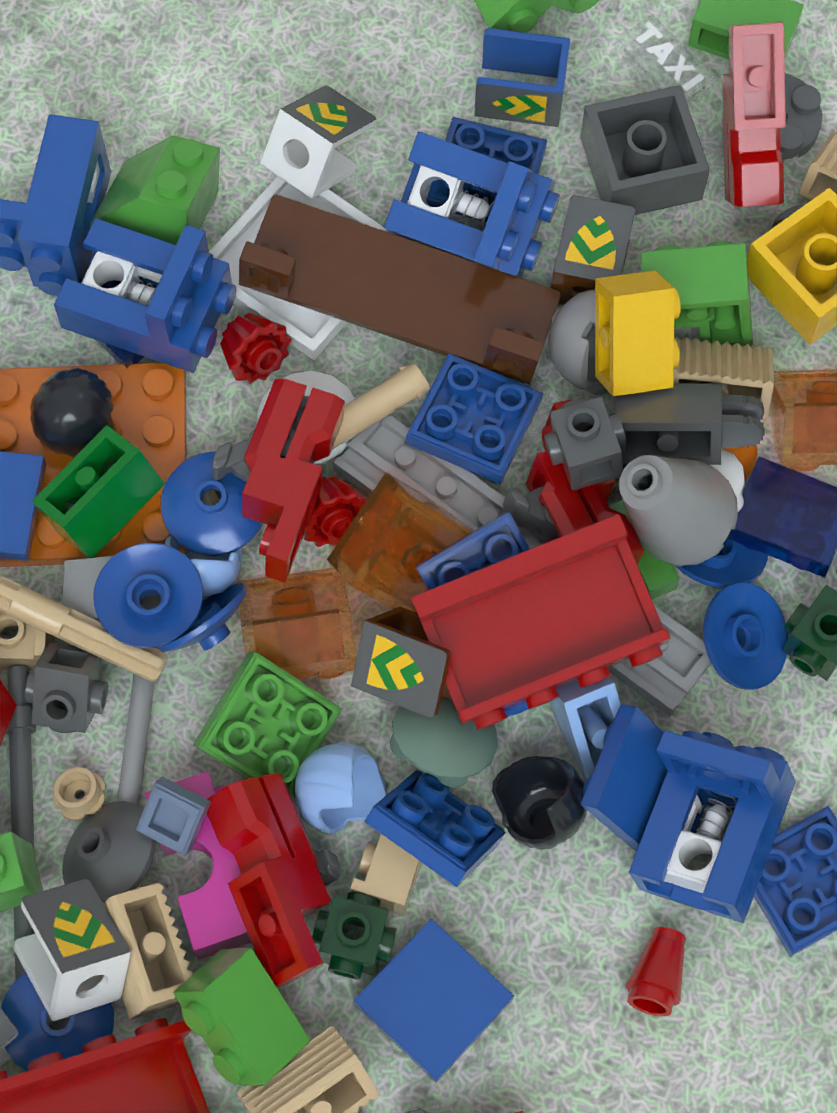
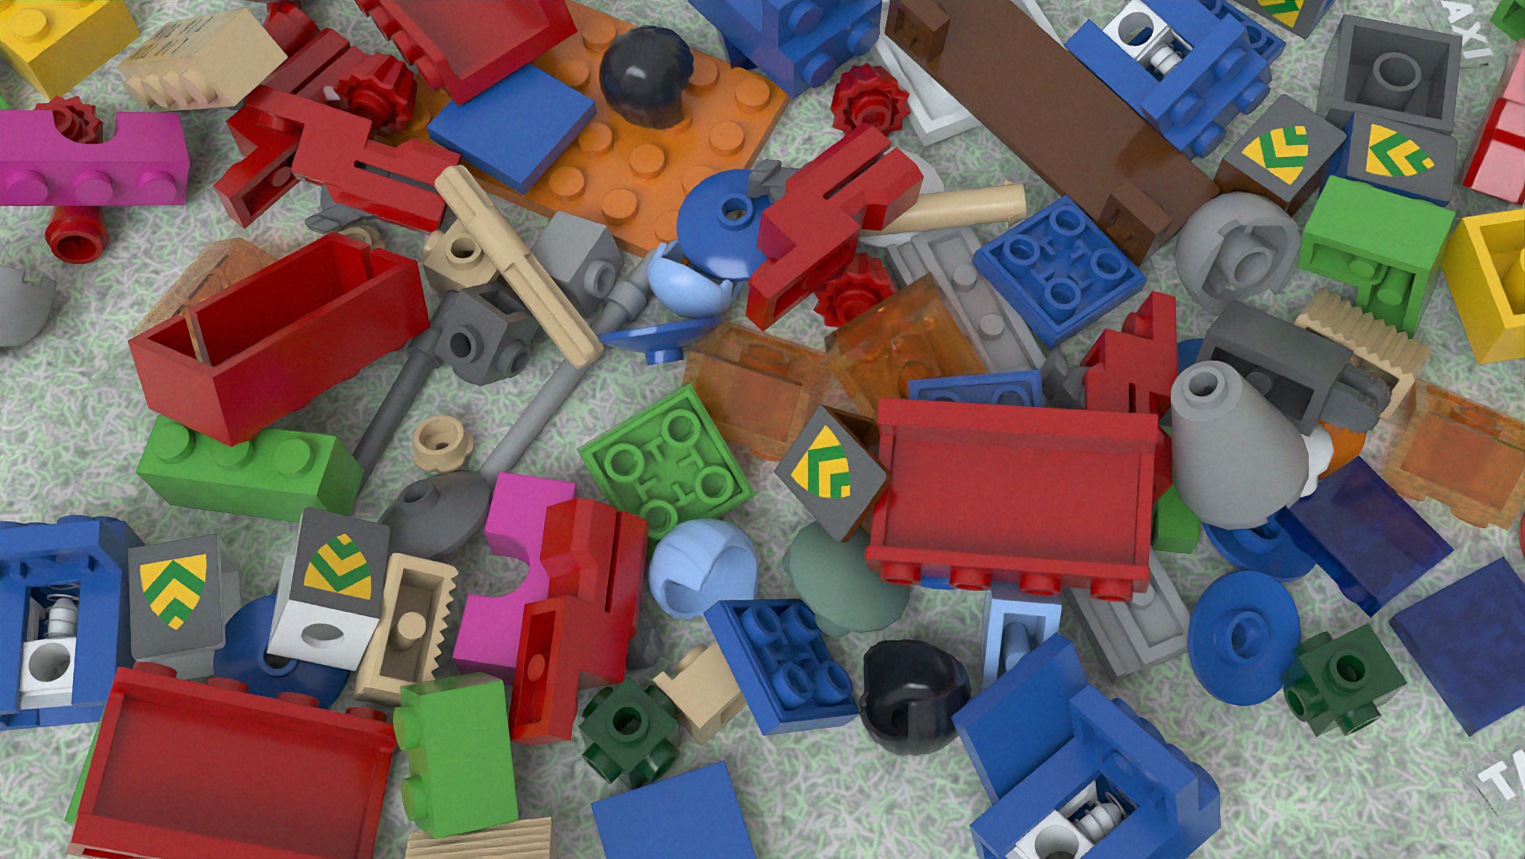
camera: 30 degrees right, 5 degrees down
(98, 492) = (626, 156): green brick -> none
(144, 572) = (612, 255): blue dish -> none
(173, 815) = (509, 505): sand blue tile -> none
(586, 442) = (1163, 333): dark grey brick -> none
(635, 332) = (1282, 248): yellow brick -> none
(677, 213) = (1395, 159): none -> piece

